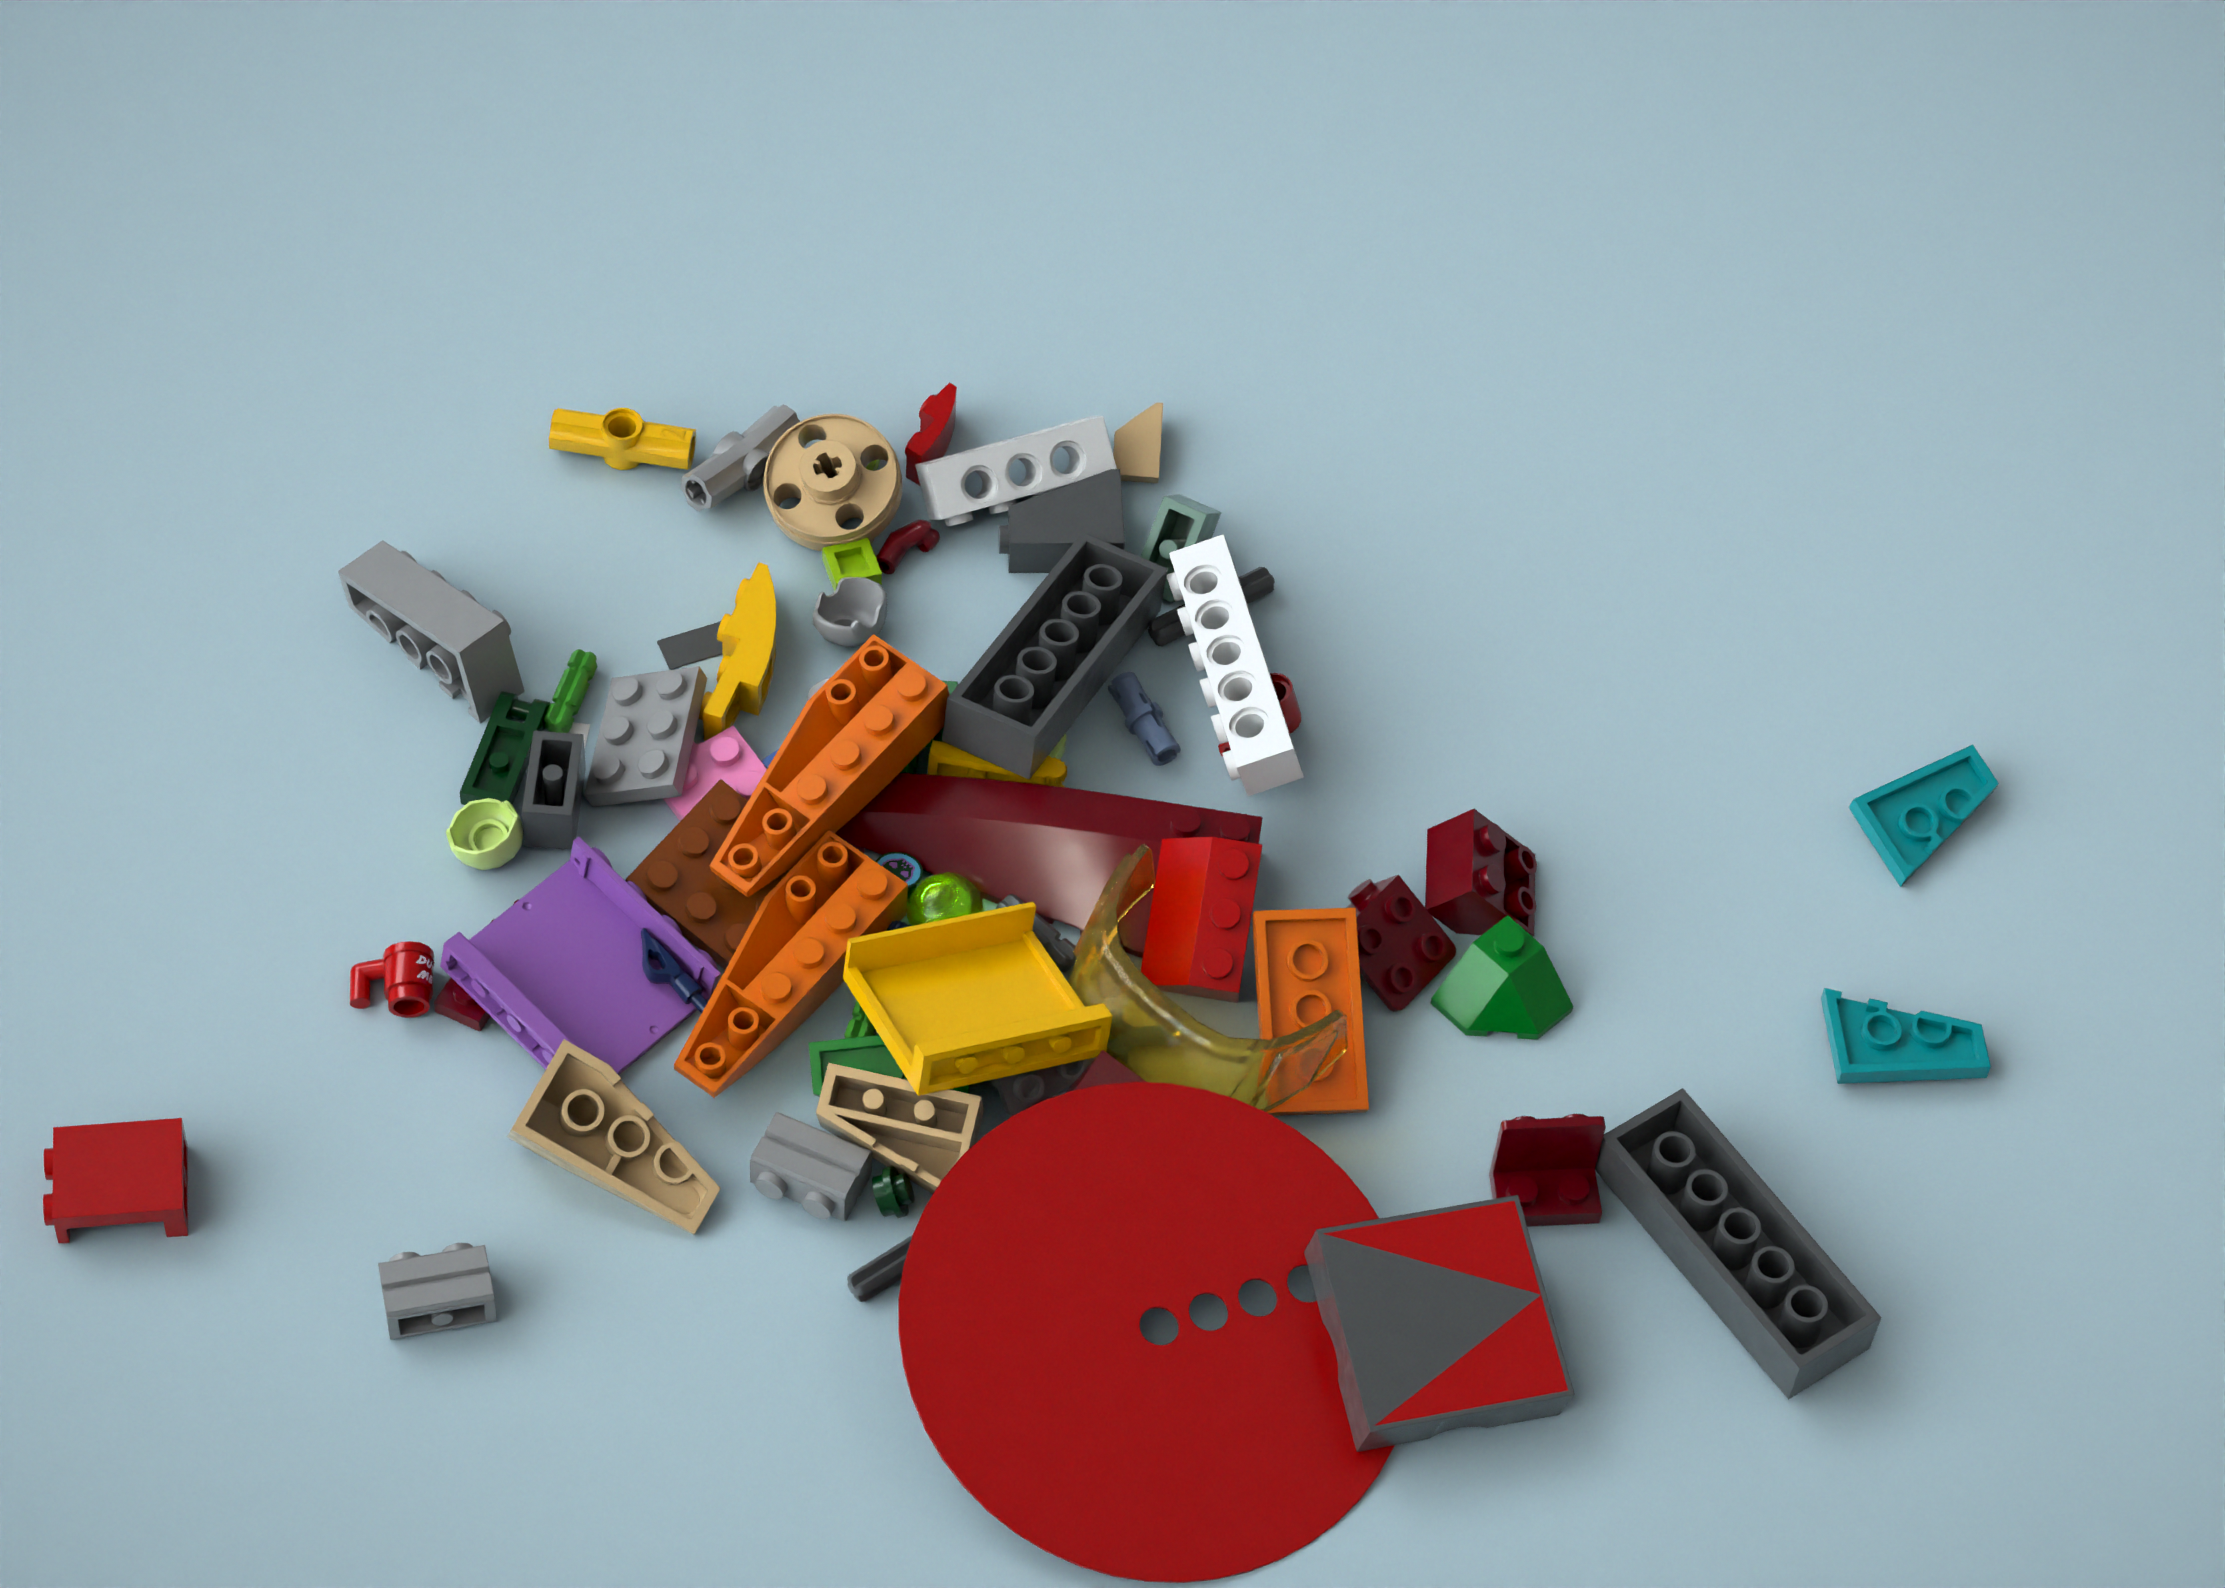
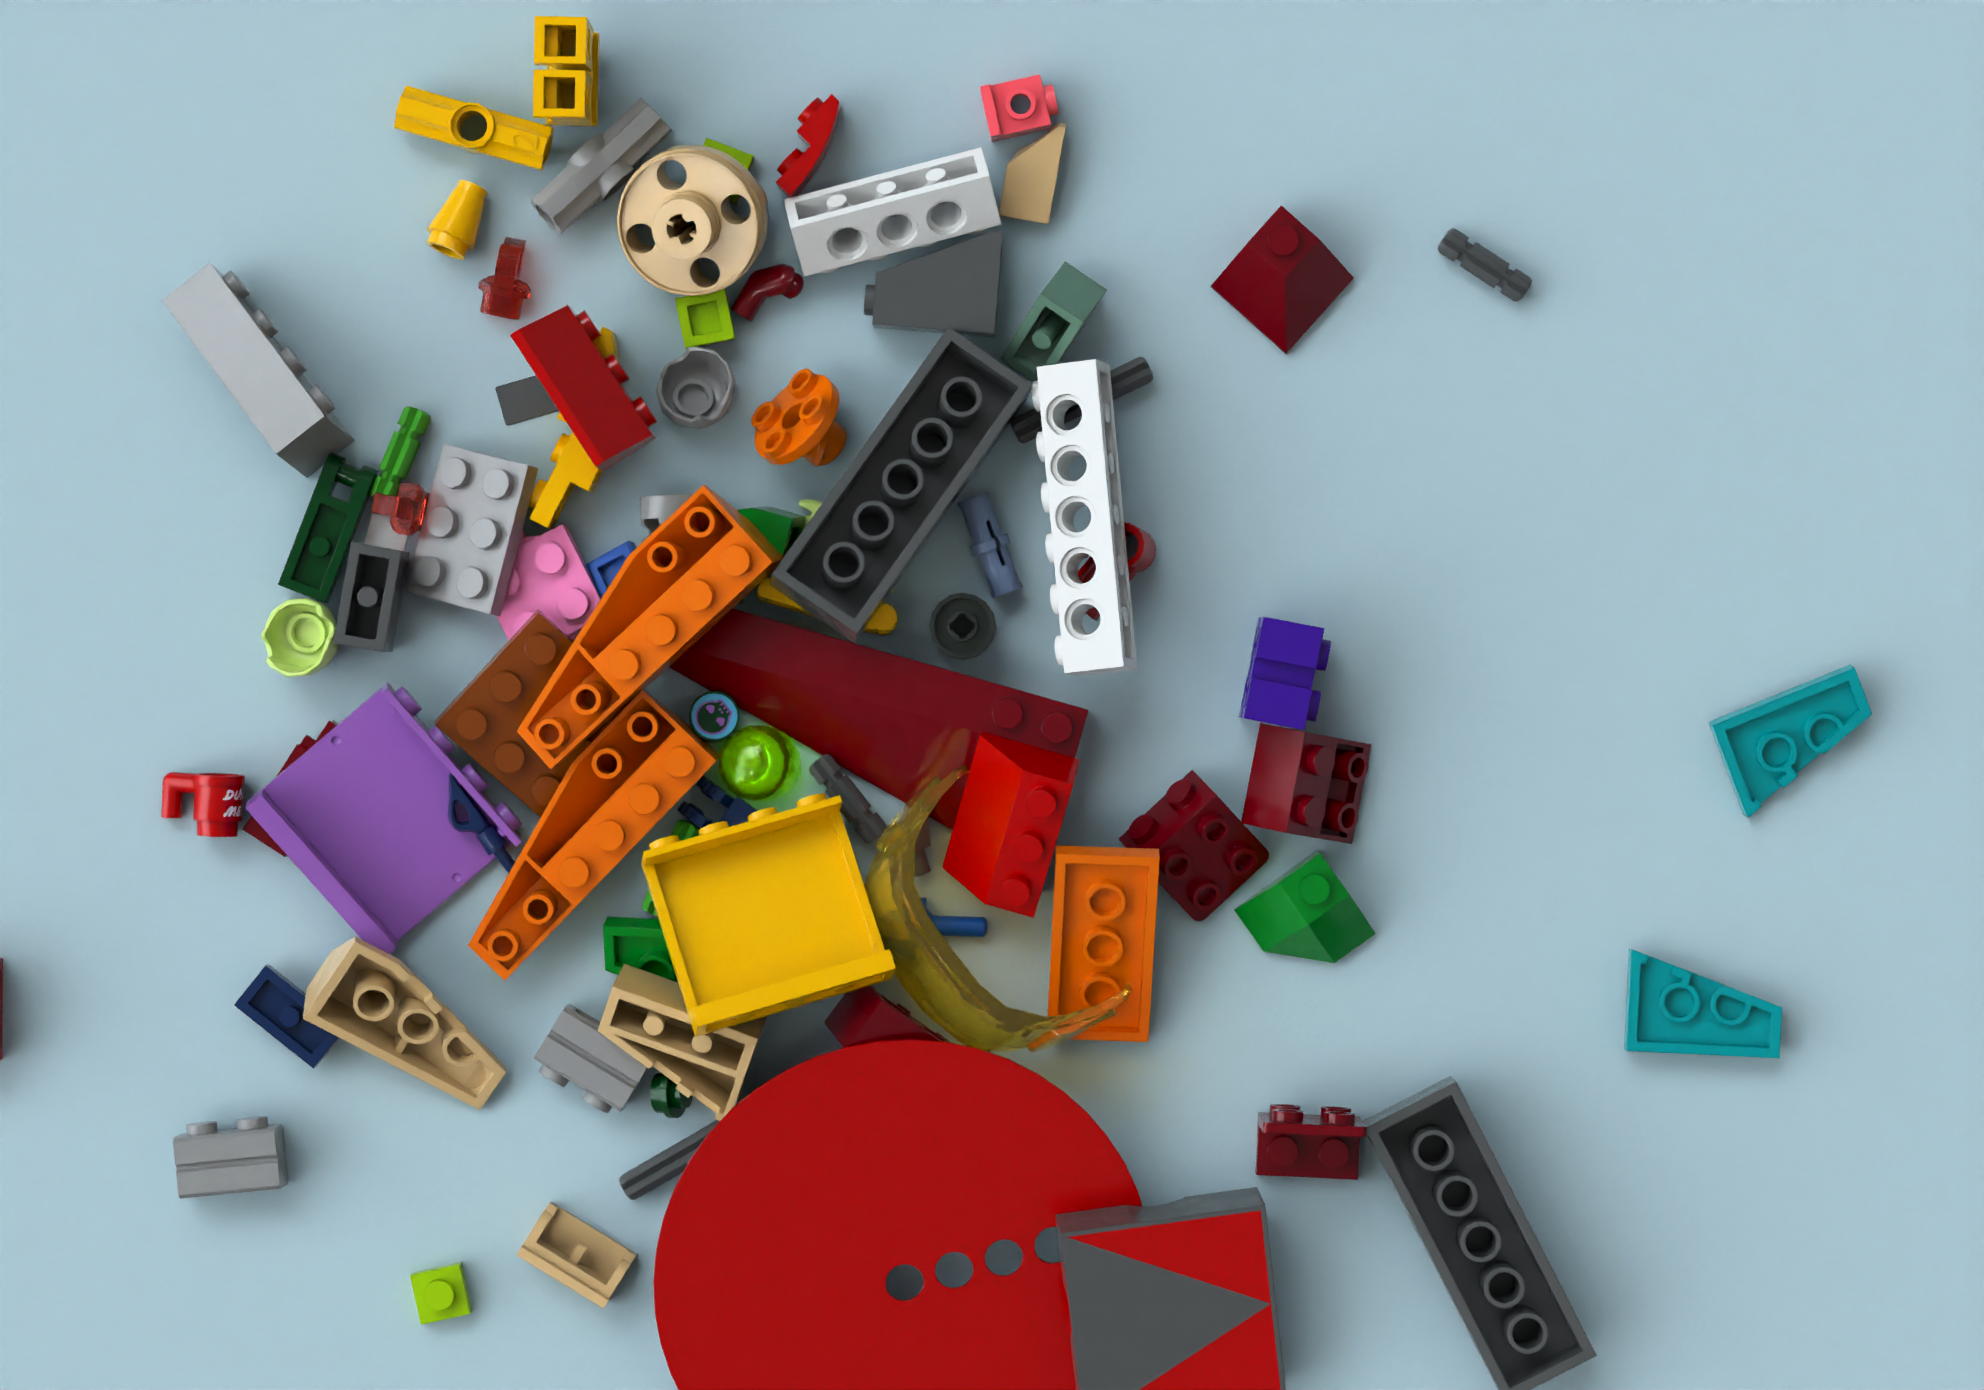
camera: 15 degrees right, 35 degrees up
(493, 1159) = (279, 1010): none -> dark blue plate
(577, 715) = (405, 509): none -> clear red piece
(612, 511) = (458, 221): none -> yellow cone
(660, 562) = (504, 291): none -> clear red piece
(668, 1405) = (441, 1293): none -> lime plate
(708, 369) = (570, 86): none -> yellow hips
(747, 590) = (586, 386): none -> red slope
(807, 1355) = (576, 1254): none -> tan hinge
(954, 629) = (800, 422): none -> orange plate
(1116, 393) = (1004, 122): none -> coral brick
(1130, 764) = (962, 626): none -> pearl dark grey wheel
(1378, 499) = (1282, 279): none -> dark red slope
(1441, 771) = (1283, 673): none -> dark purple brick
(1558, 483) = (1484, 265): none -> dark grey axle

